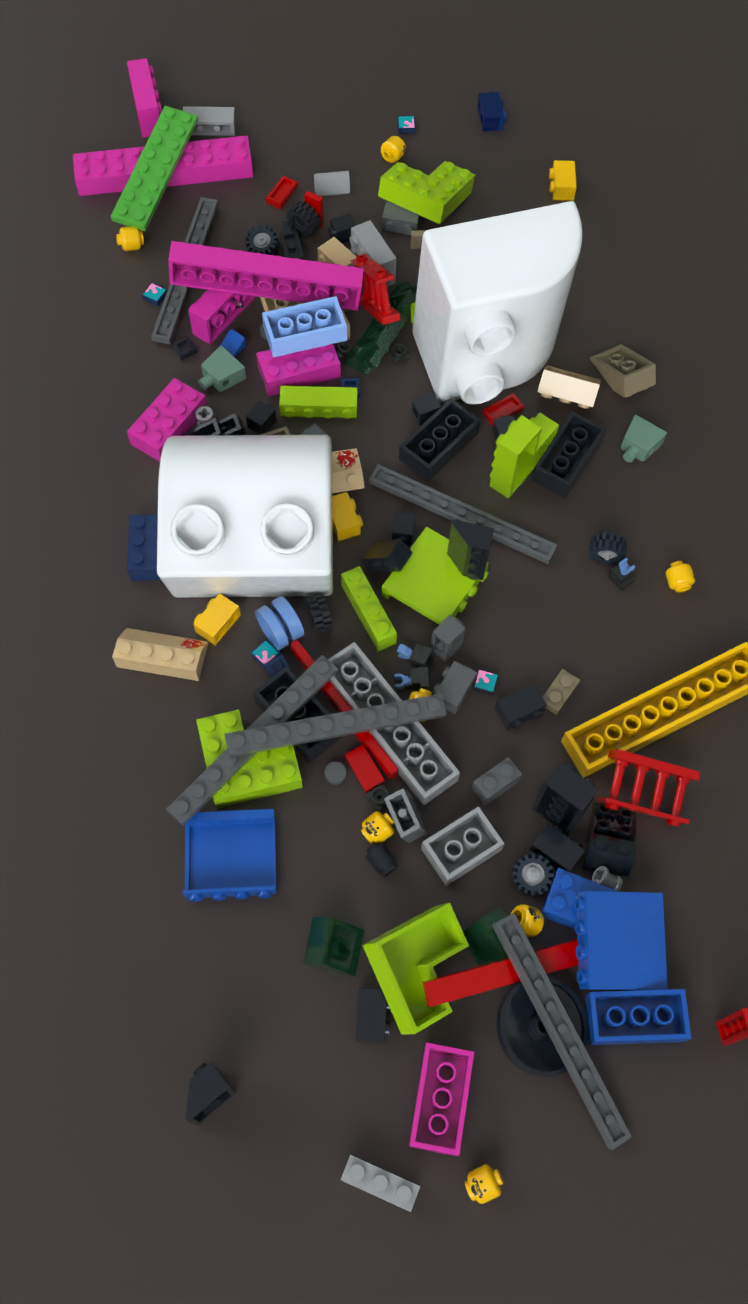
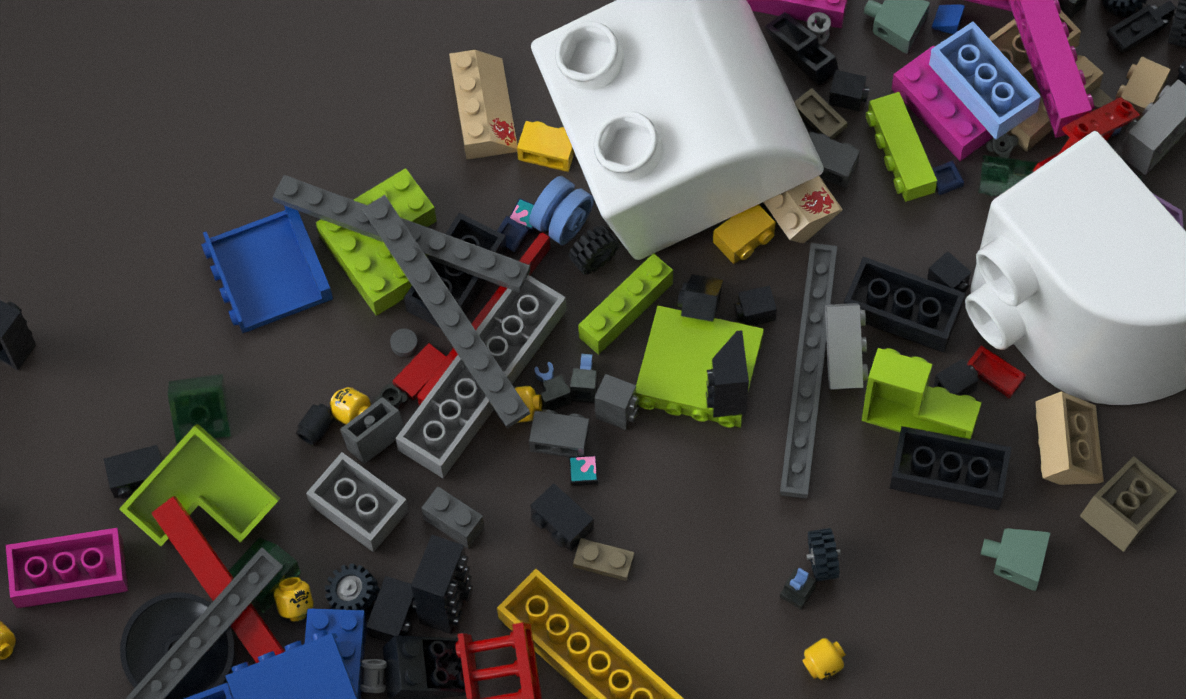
camera: 75 degrees right, 0 degrees up
(460, 481) = (845, 346): none -> light grey brick

